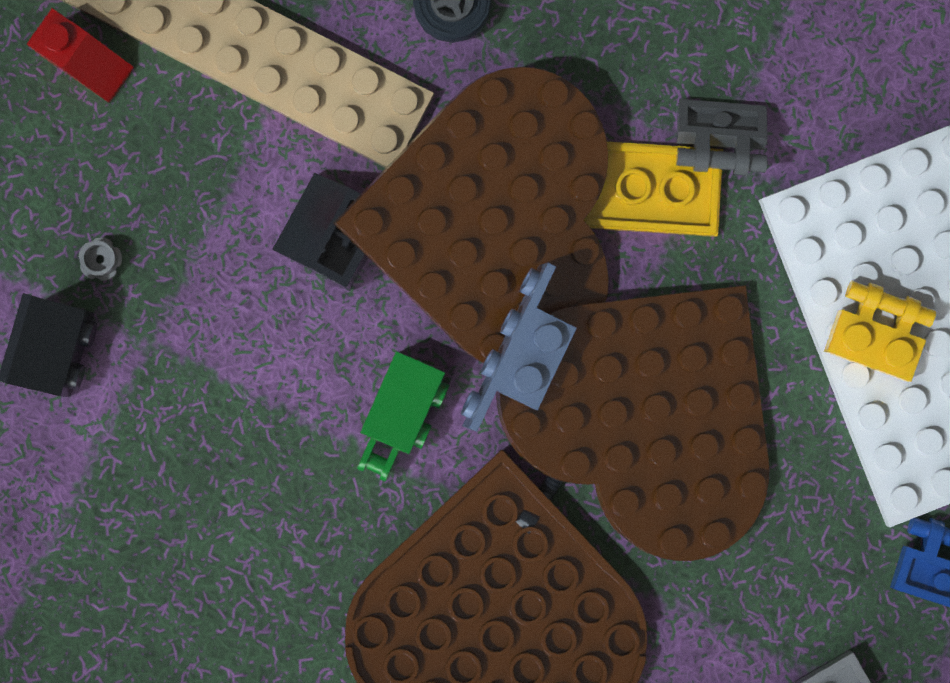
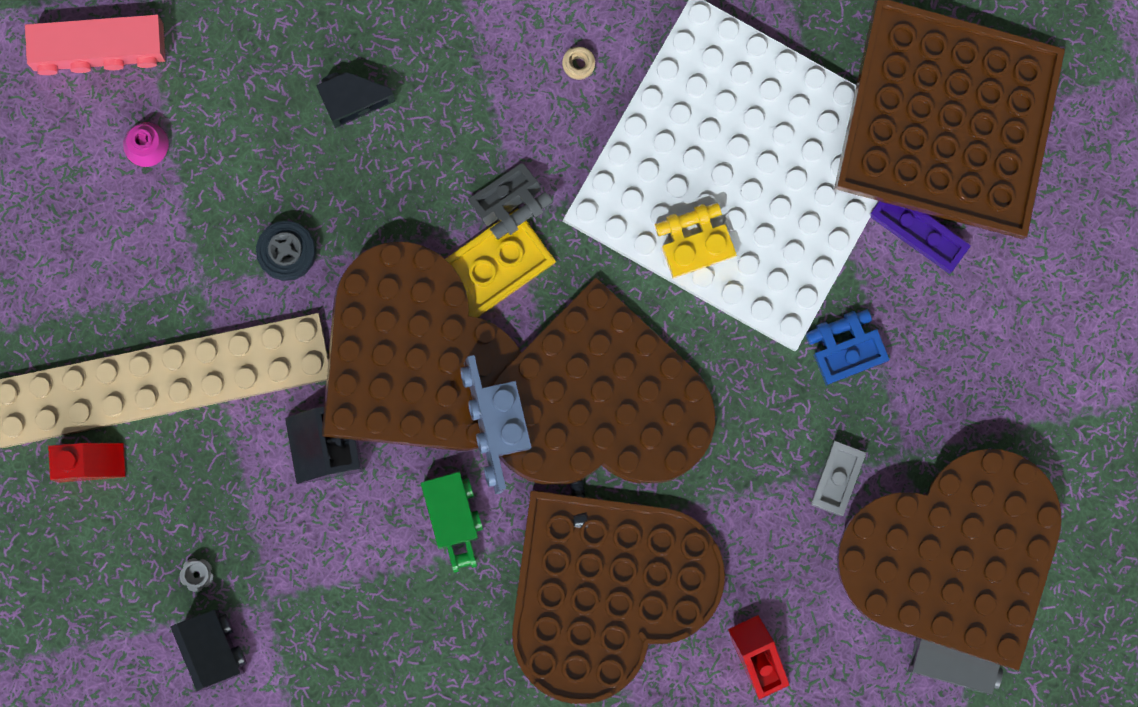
camera: 40 degrees left, 5 degrees down
(917, 40) = (578, 53): none -> tan plate

